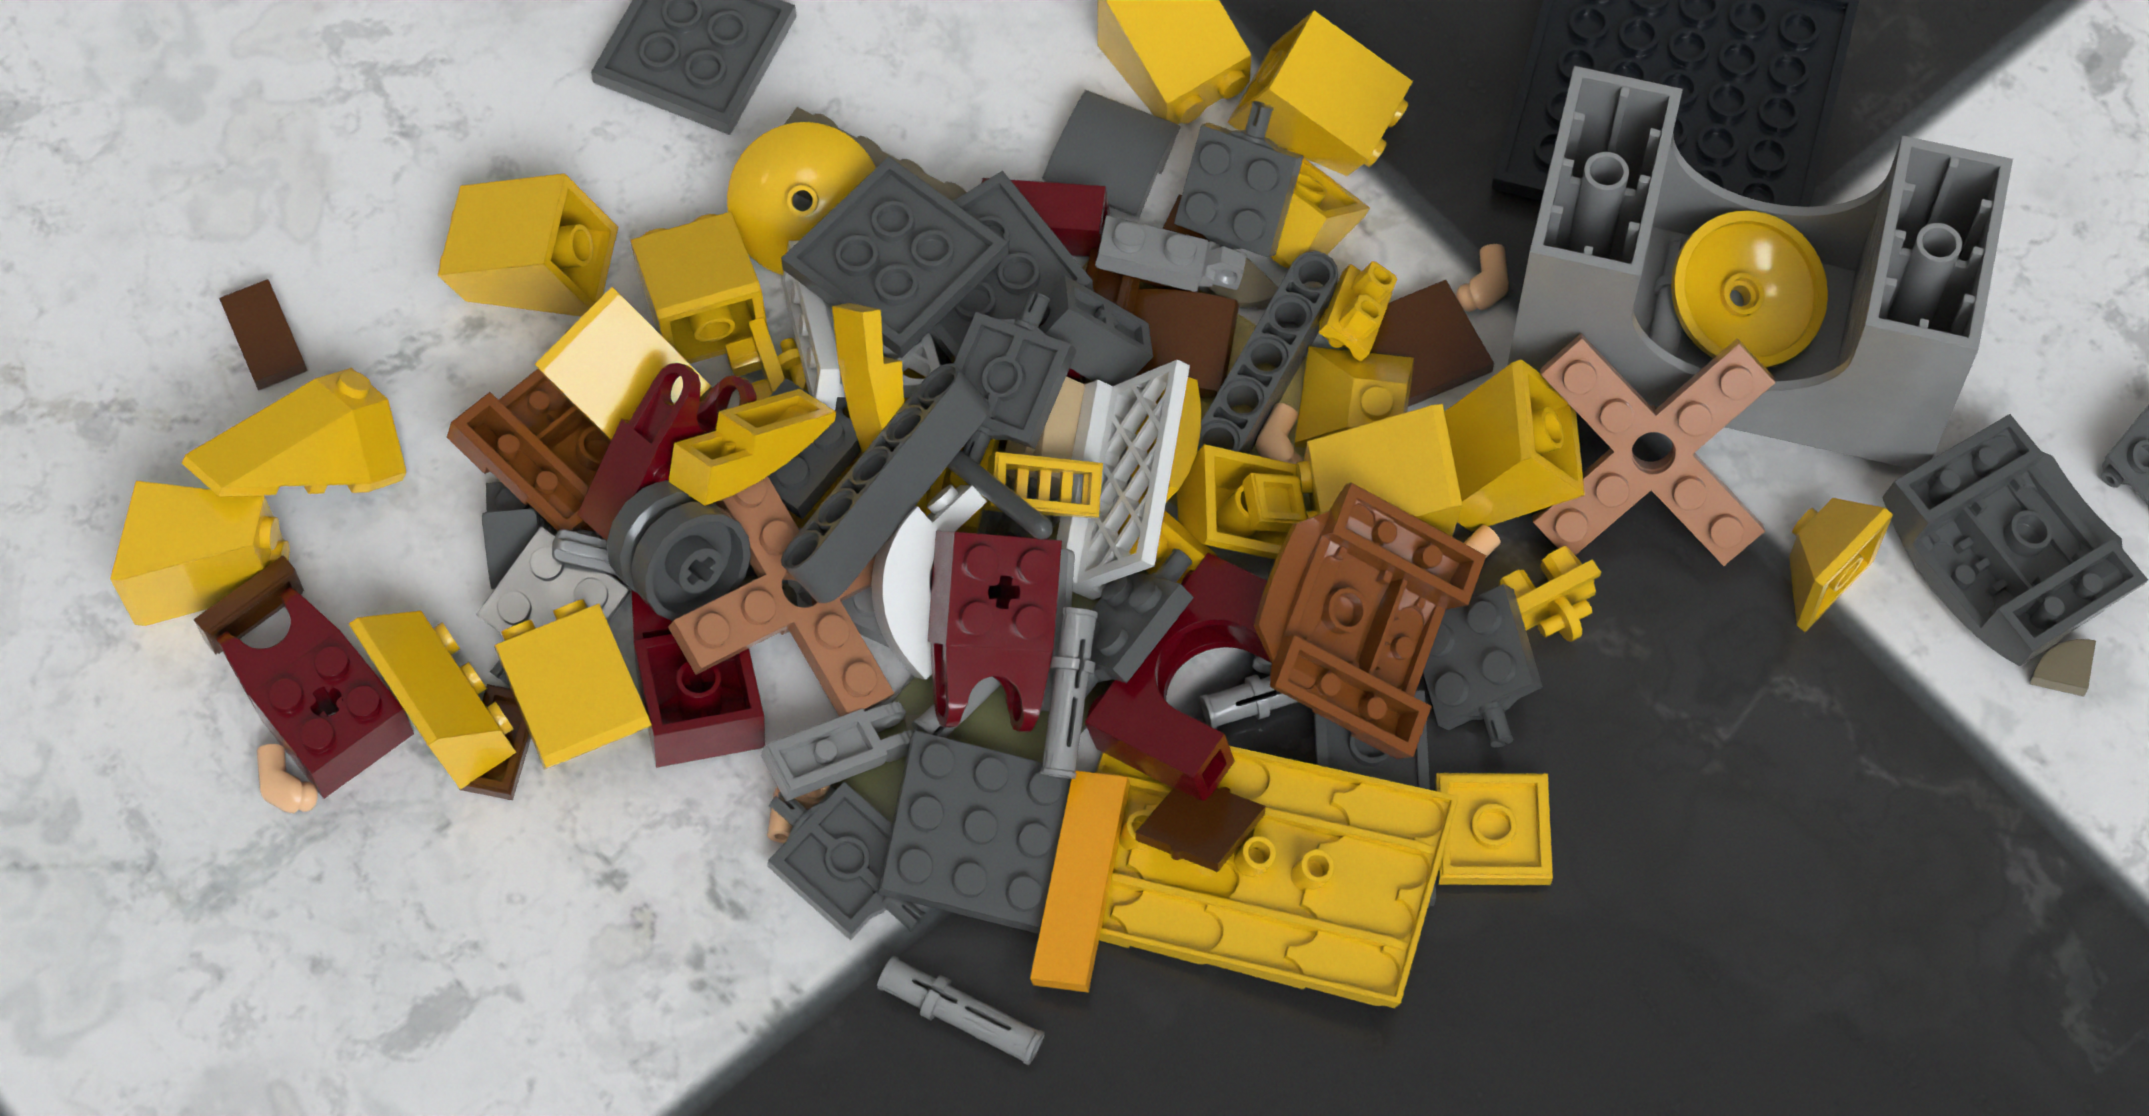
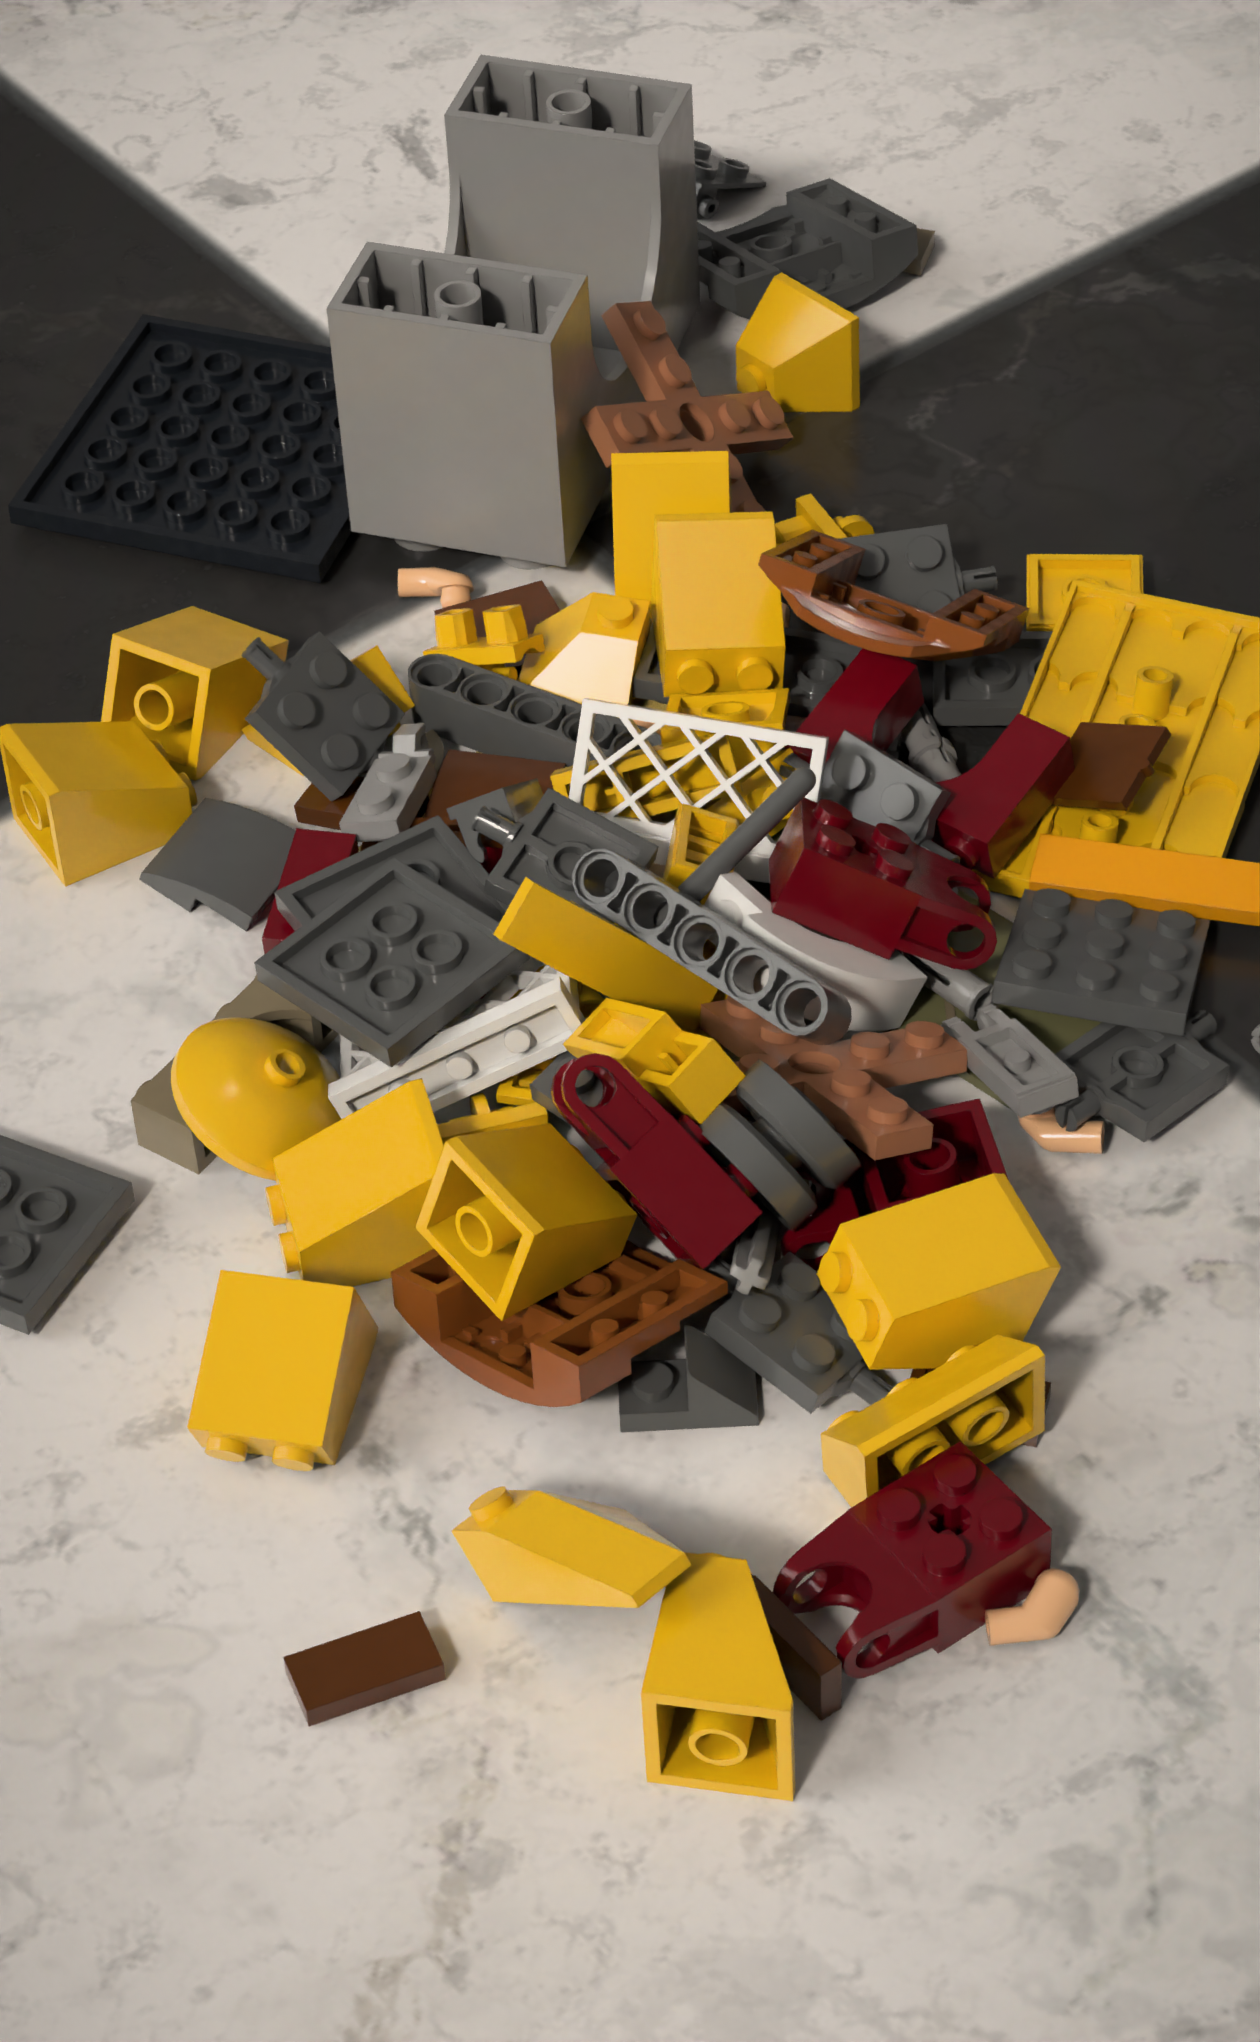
camera: 85 degrees left, 20 degrees down
(1069, 691) = (965, 846): light grey pin -> none
(1273, 501) = (728, 691): yellow tile -> none

